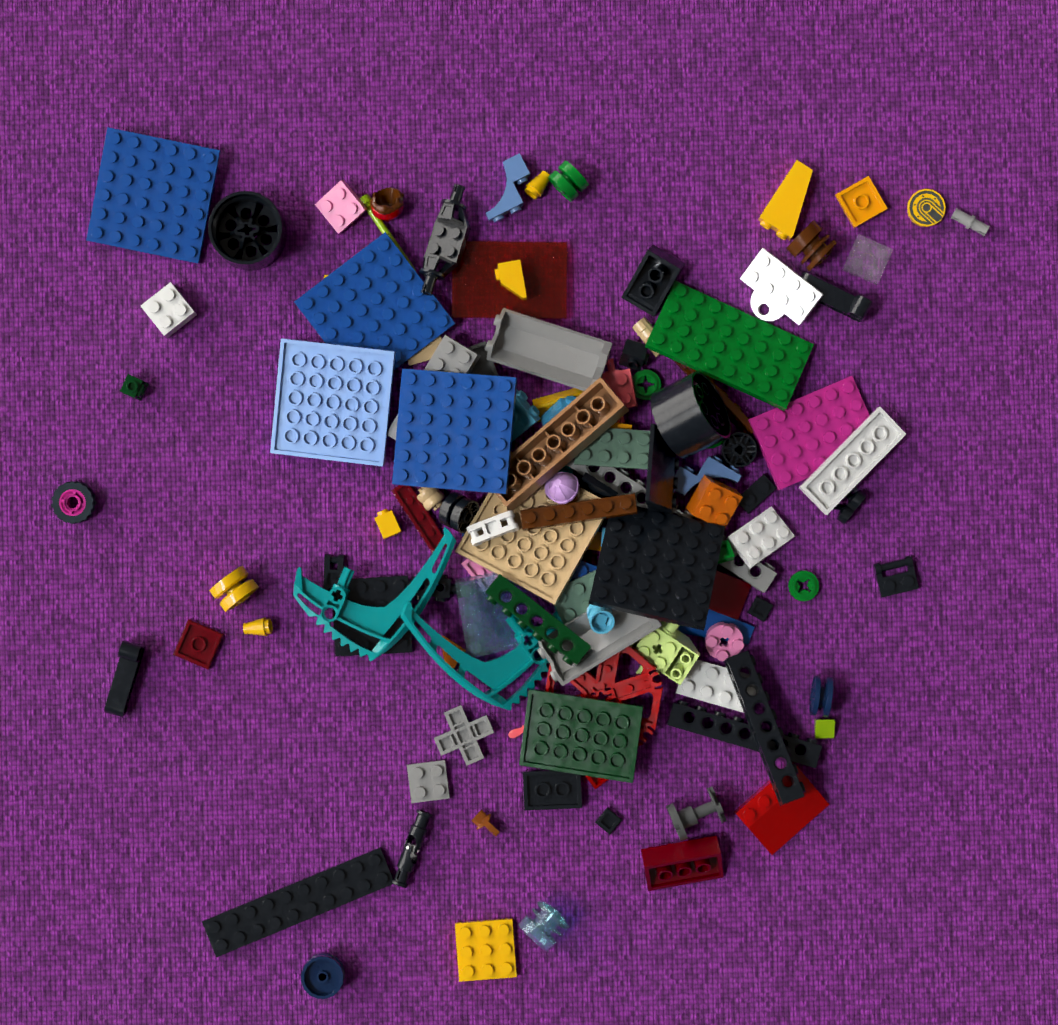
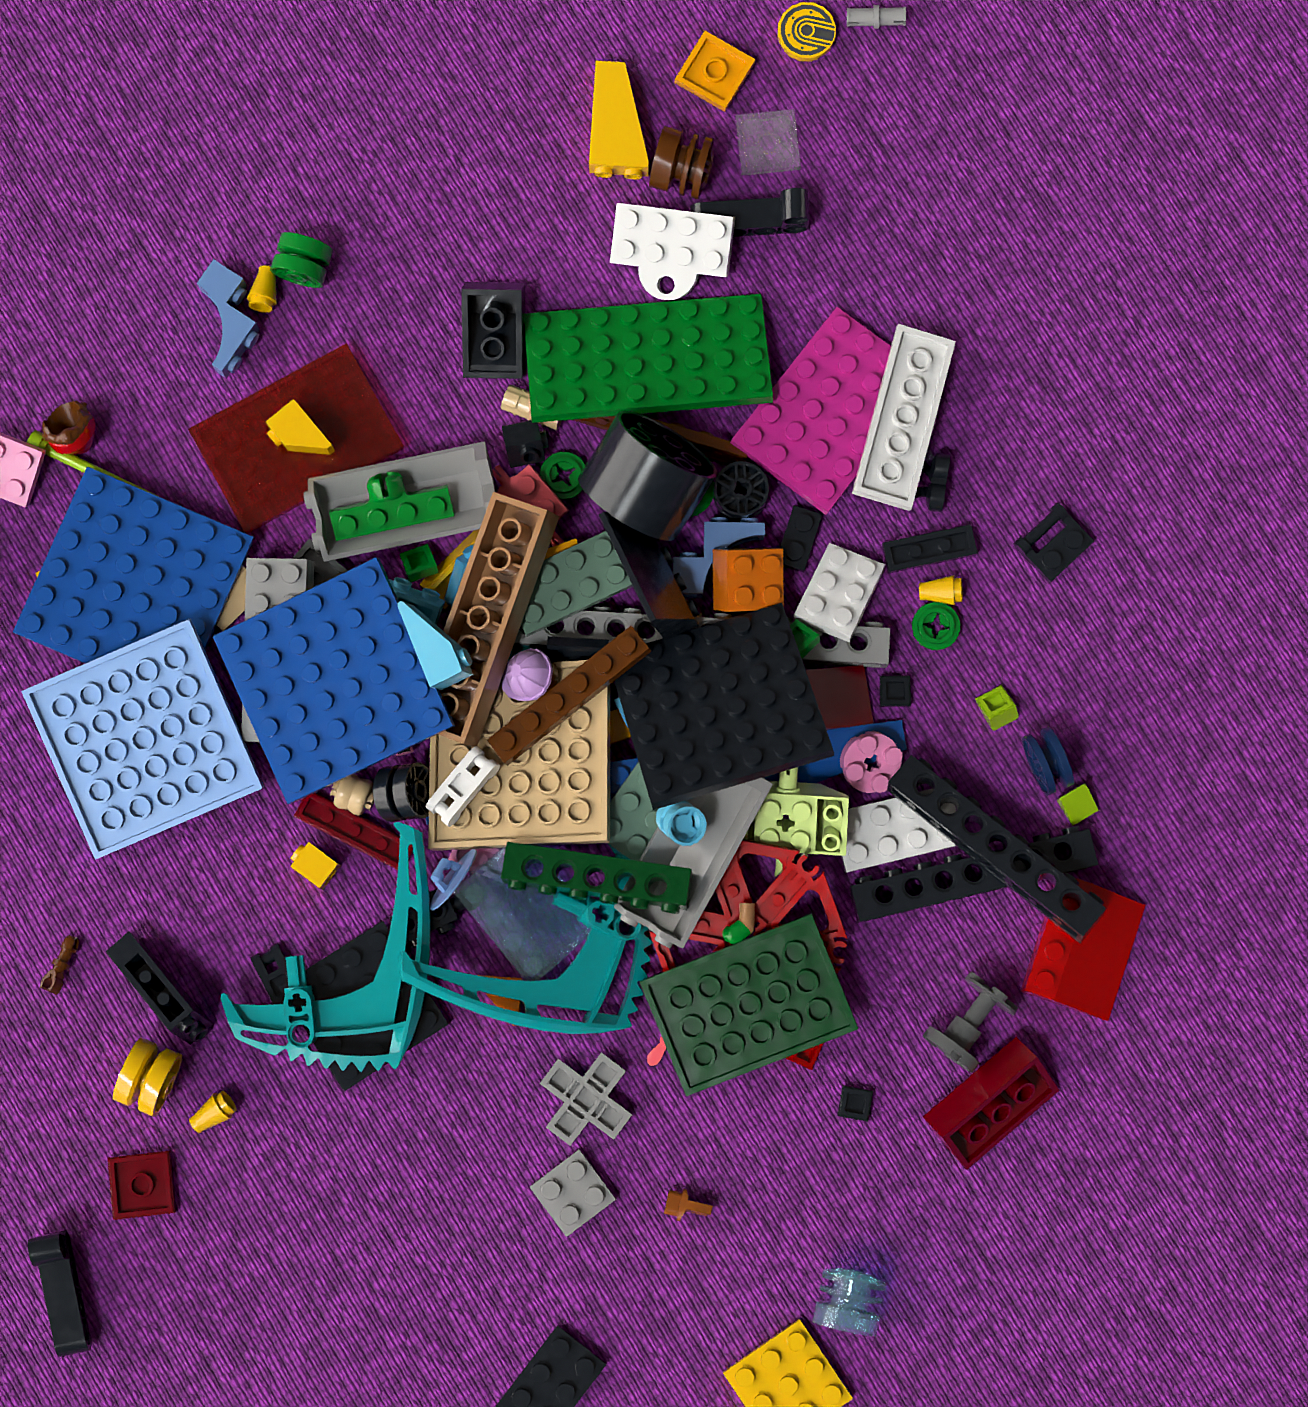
camera: 30 degrees left, 5 degrees down
(214, 503) = (54, 978): none -> reddish brown piece
(266, 544) = (159, 989): none -> black slope
(410, 852) = (603, 1306): black piece -> none
(446, 240) = (179, 431): black plate -> none
(459, 576) = (453, 878): none -> medium blue shield
(520, 448) = (439, 655): none -> medium azure slope
(538, 388) = (418, 563): none -> green plate
(539, 350) = (390, 508): none -> green plate
(551, 790) = (752, 1105): black plate -> none
(601, 692) = (743, 926): none -> arm
(811, 650) = (997, 707): none -> lime slope
(818, 568) = (942, 590): none -> yellow cone
(824, 541) = (929, 549): none -> black plate

